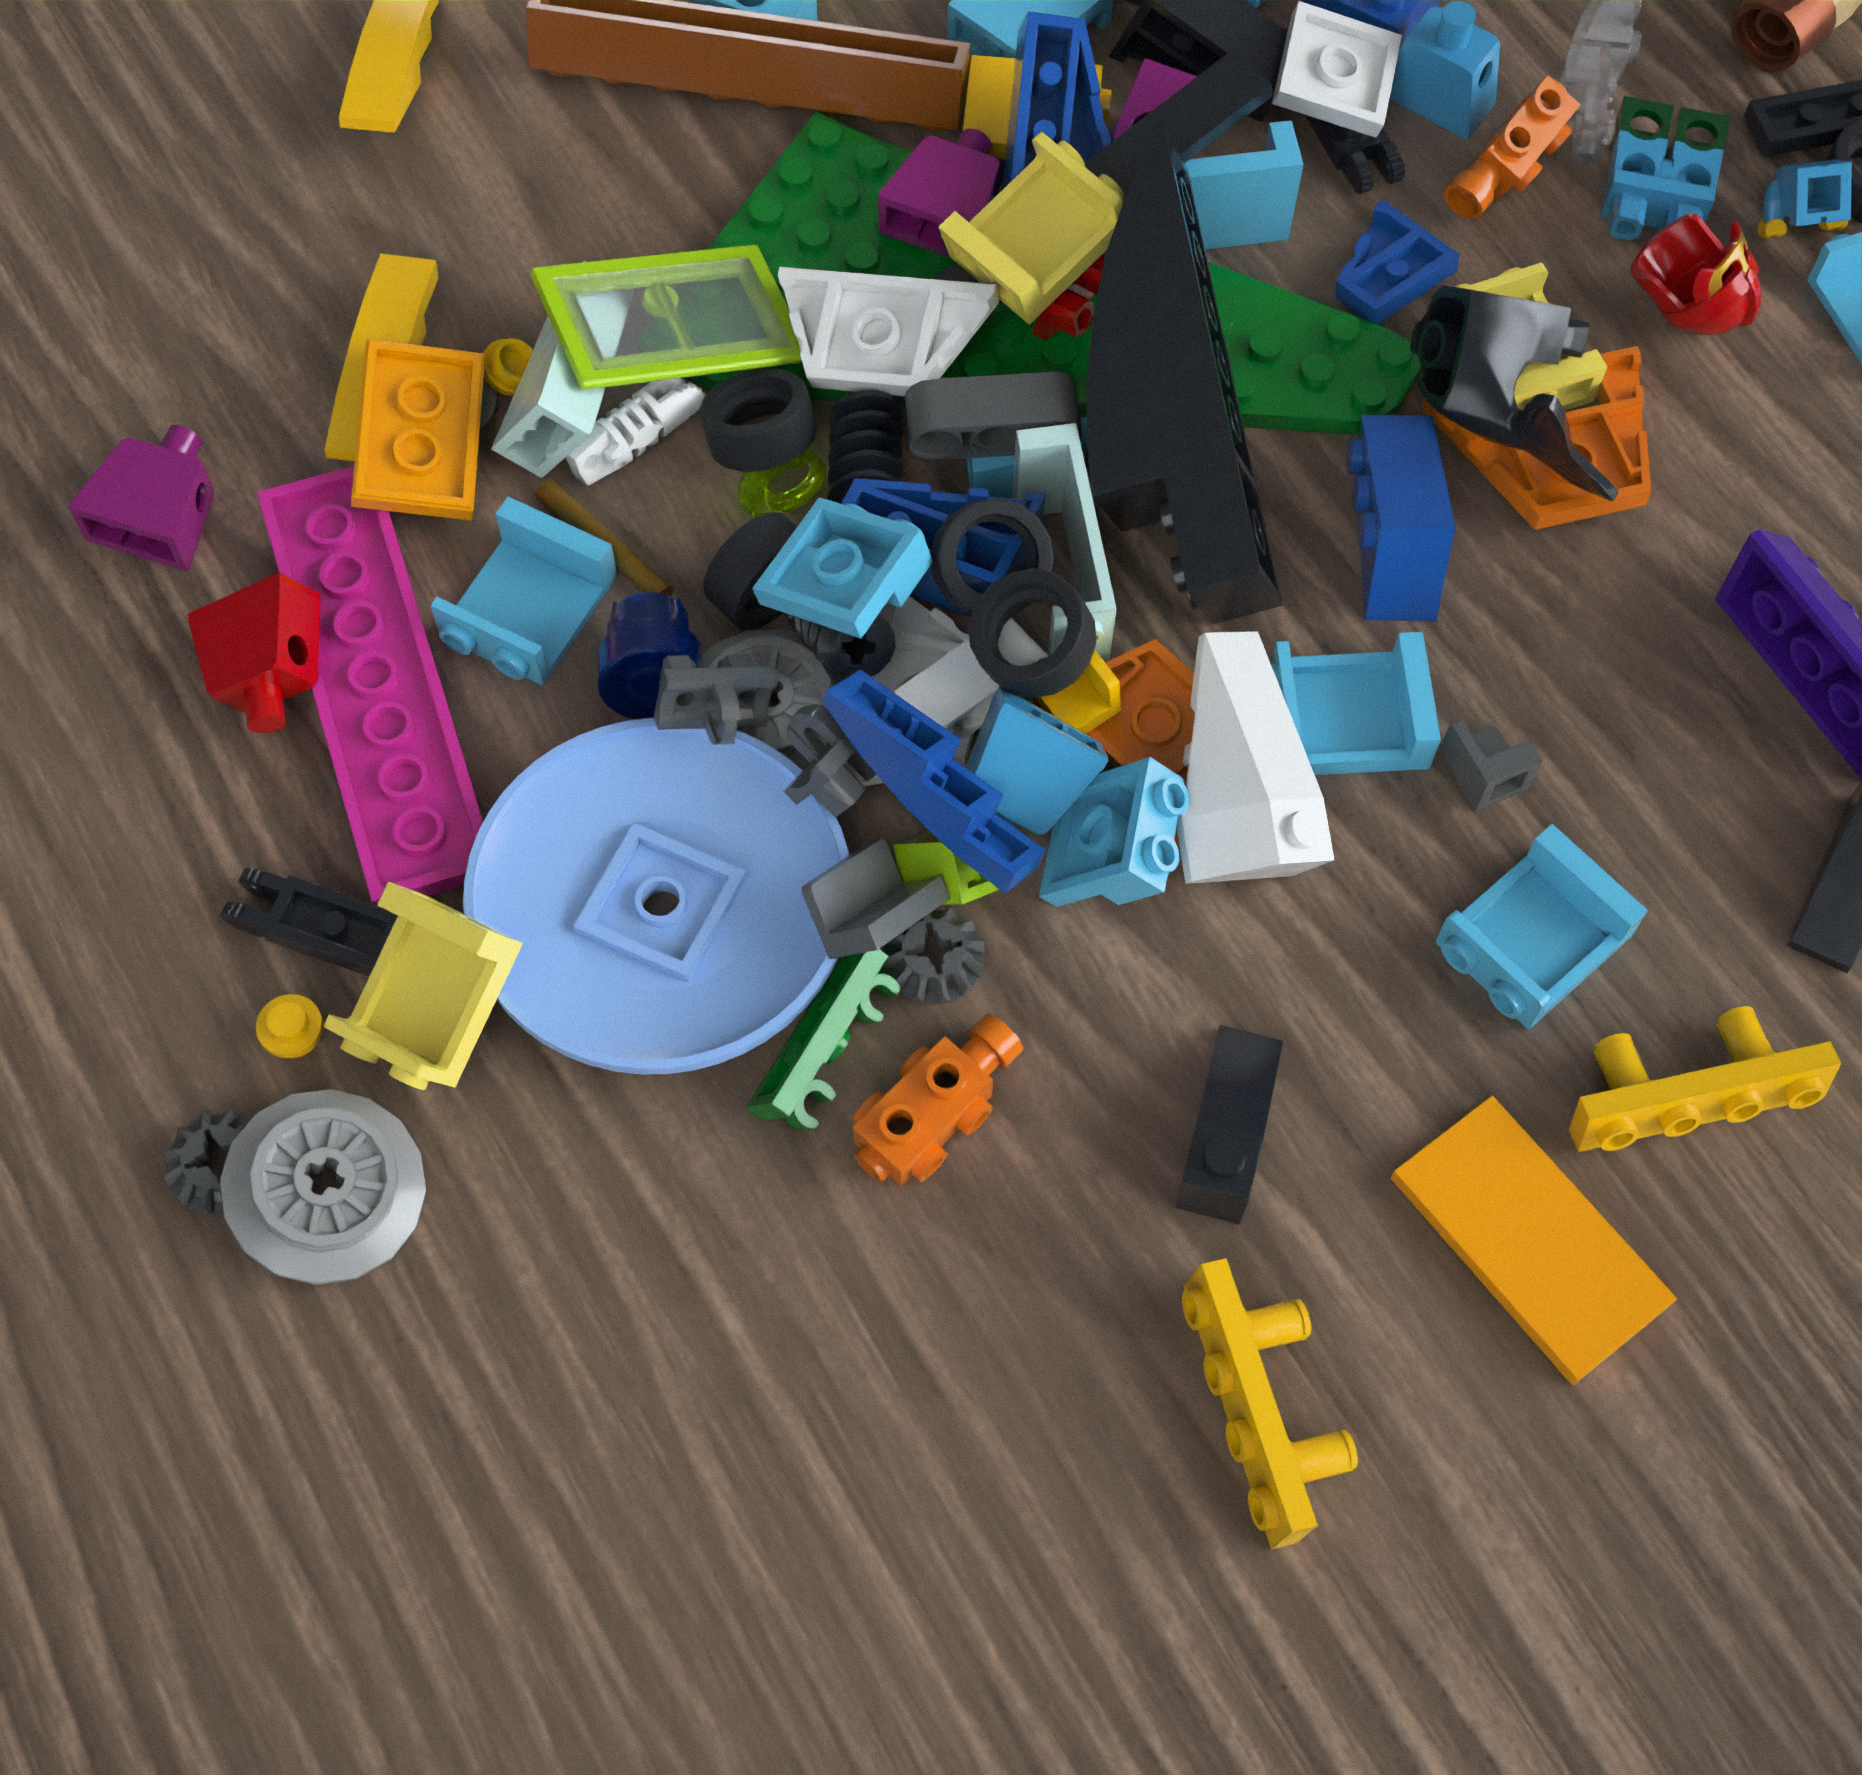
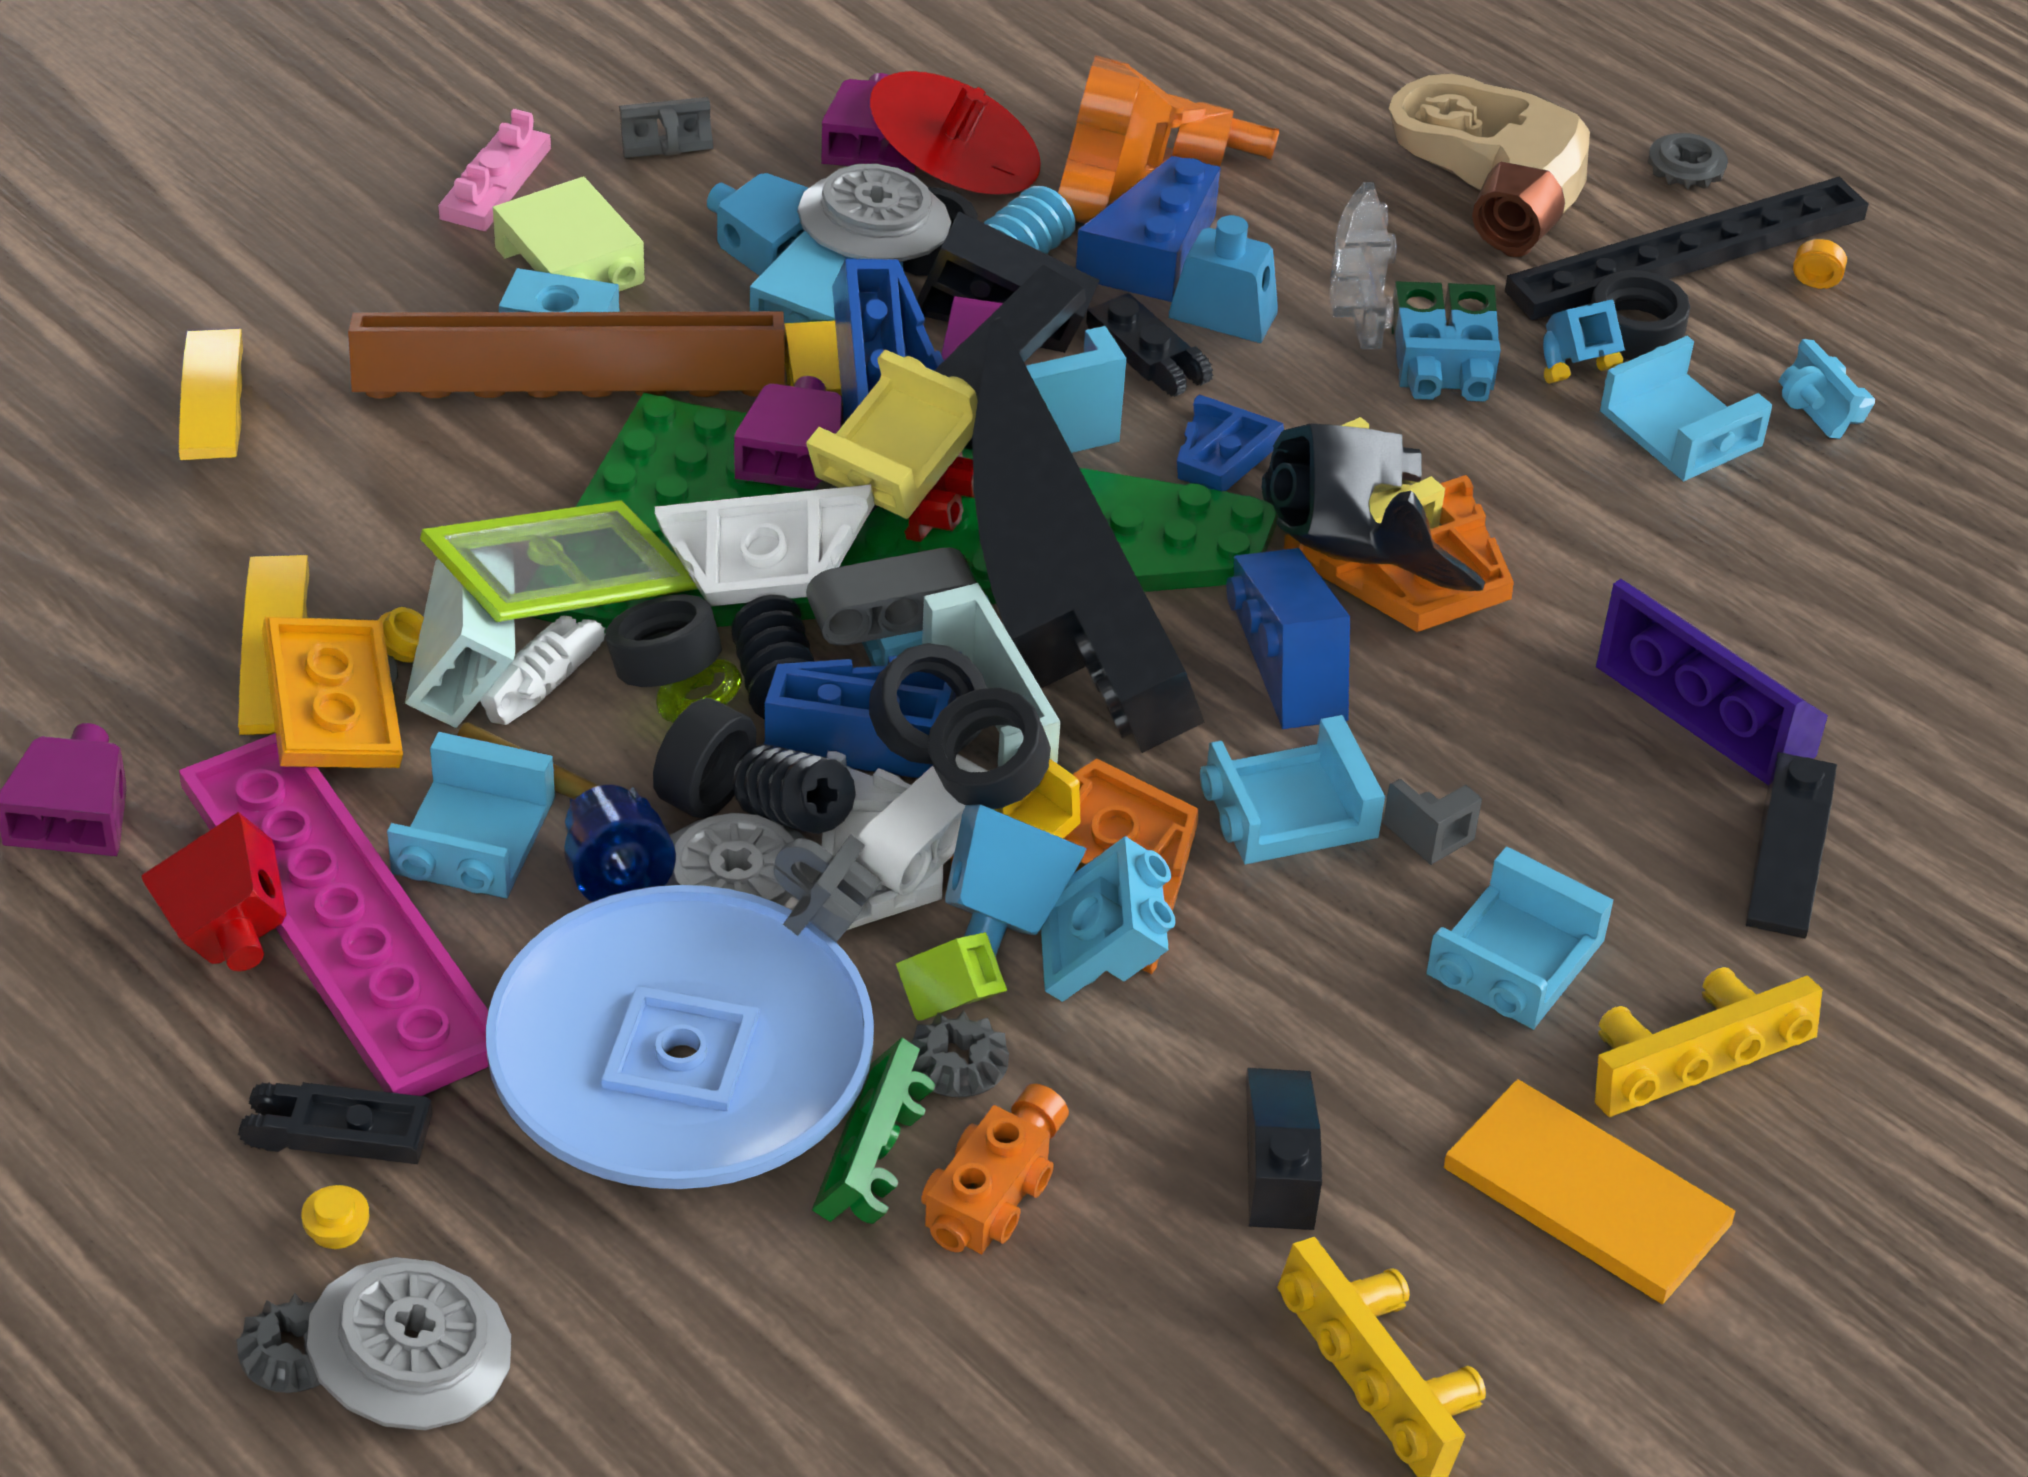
camera: 15 degrees left, 20 degrees down
(427, 990) = (476, 1143): light yellow panel -> none
(738, 692) = (714, 844): dark grey hips -> none
(844, 567) = (796, 722): medium azure plate -> none
(866, 903) = (882, 1008): dark grey panel -> none
(918, 767) = (909, 876): blue slope -> none
(1248, 775) = (1226, 862): white wedge -> none
(1337, 69) = (1131, 290): white plate -> none
(1512, 152) = (1308, 339): orange brick -> none
(1698, 279) = (1506, 417): red helmet -> none

